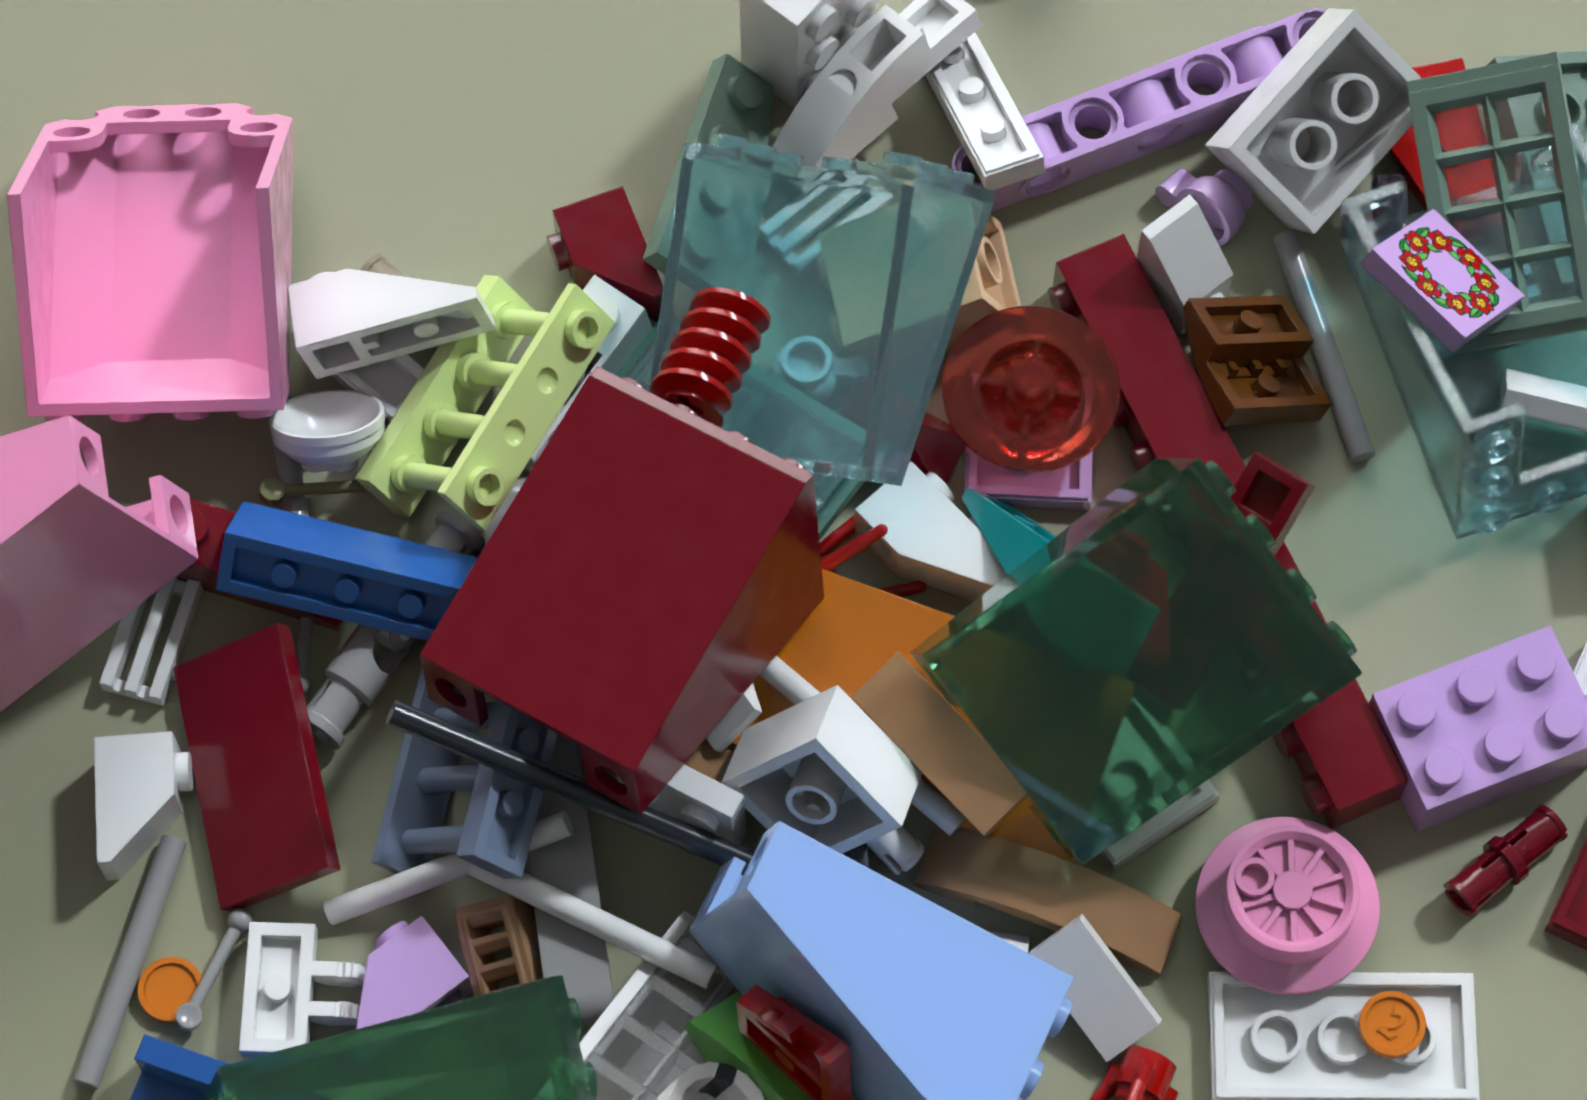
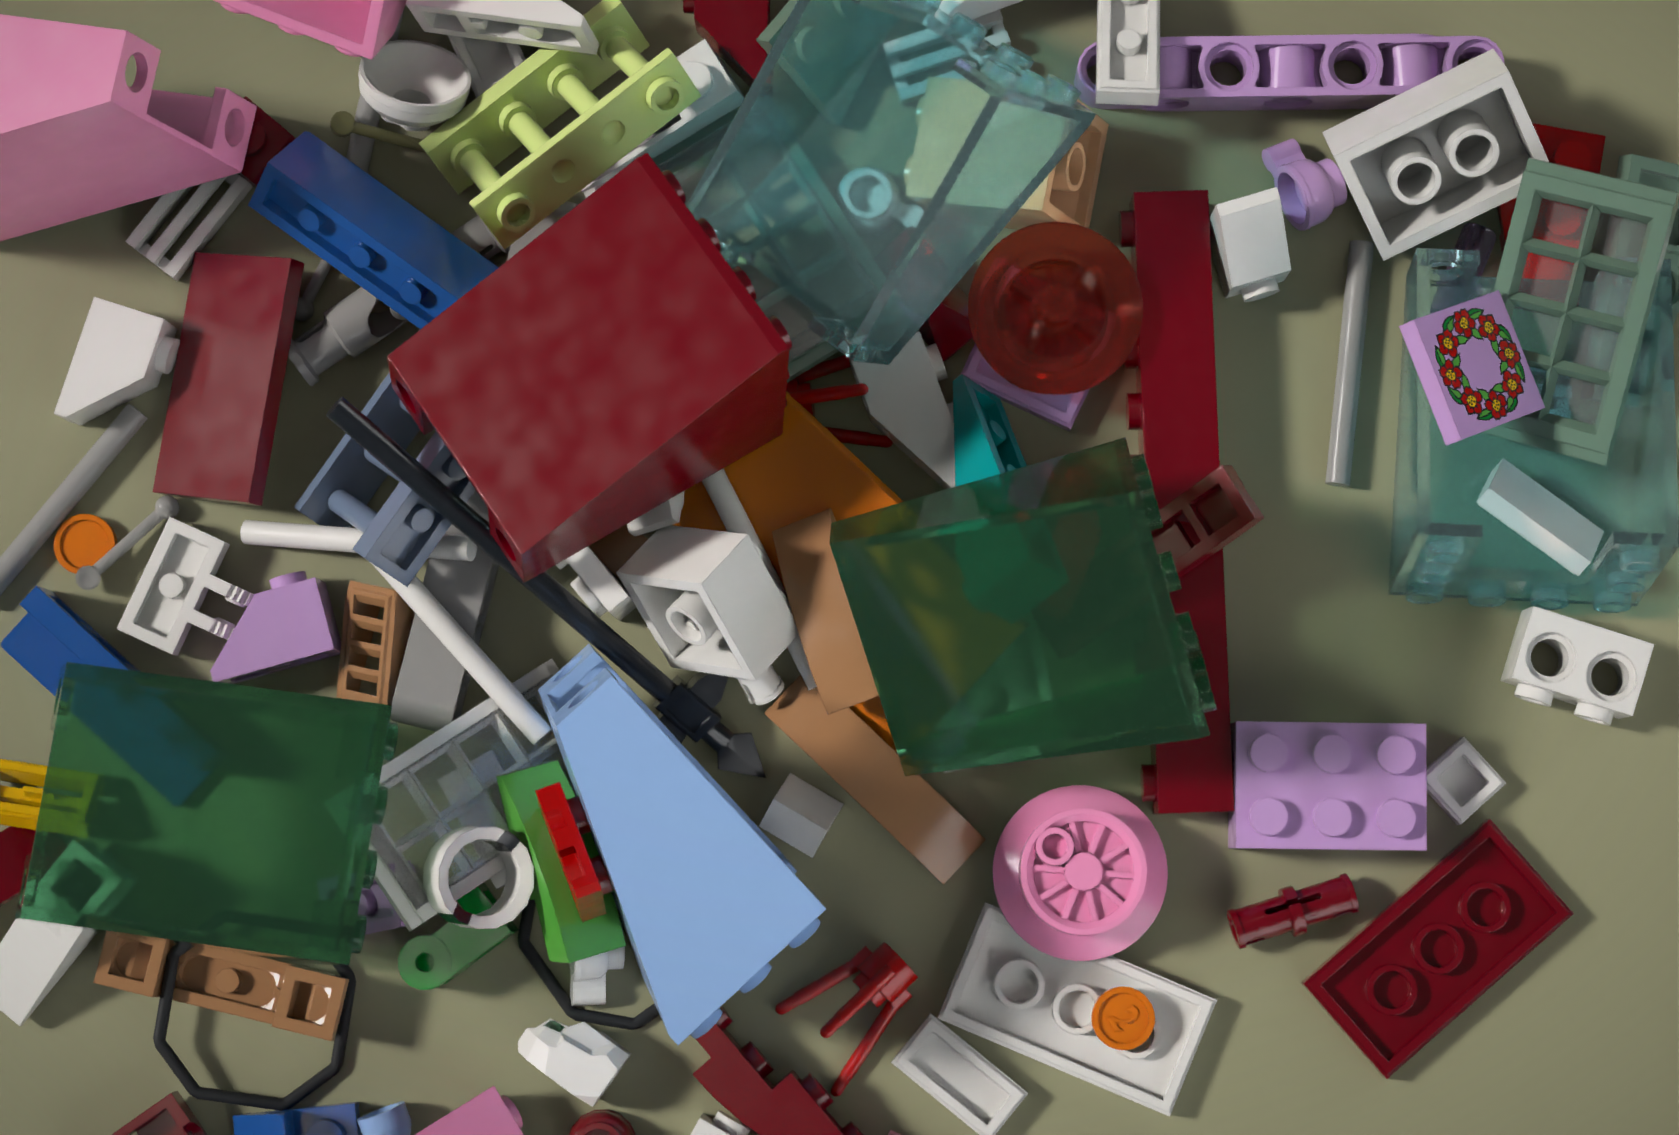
camera: 30 degrees right, 15 degrees up
(711, 352) = (761, 170): red piece -> none
(1101, 993) = (876, 879): white tile -> none
(1253, 359) = (1275, 357): reddish brown slope -> none

